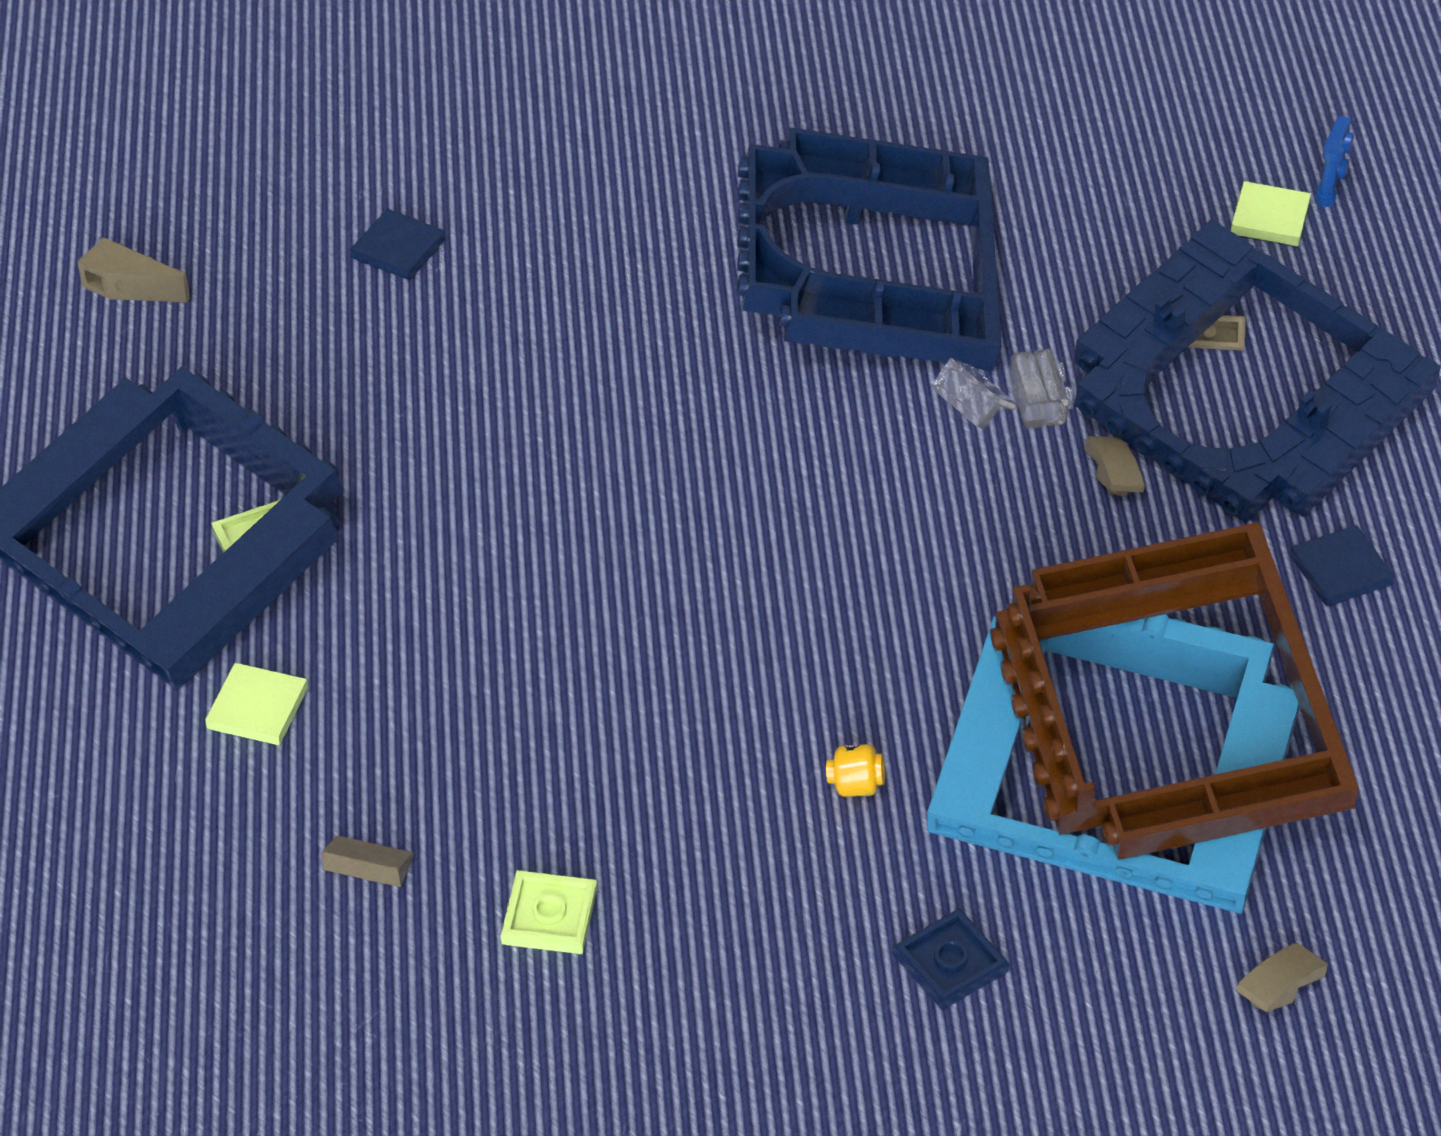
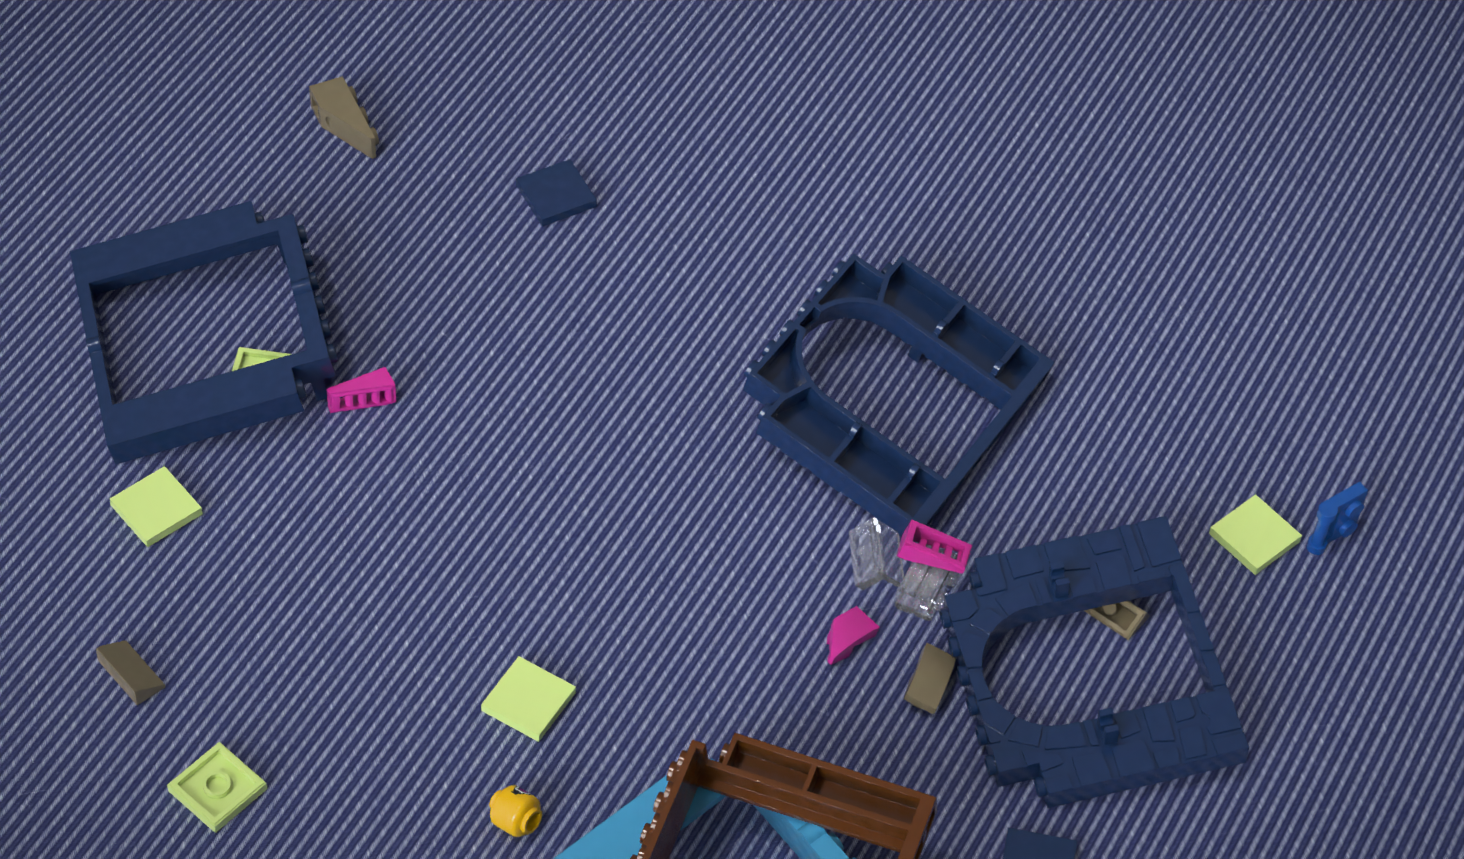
camera: 30 degrees right, 5 degrees up
(375, 498) = (362, 392): none -> dark pink slope
(773, 674) = (528, 698): none -> yellowish green tile
(1008, 467) = (848, 631): none -> dark pink slope
(1028, 352) = (921, 554): none -> dark pink slope

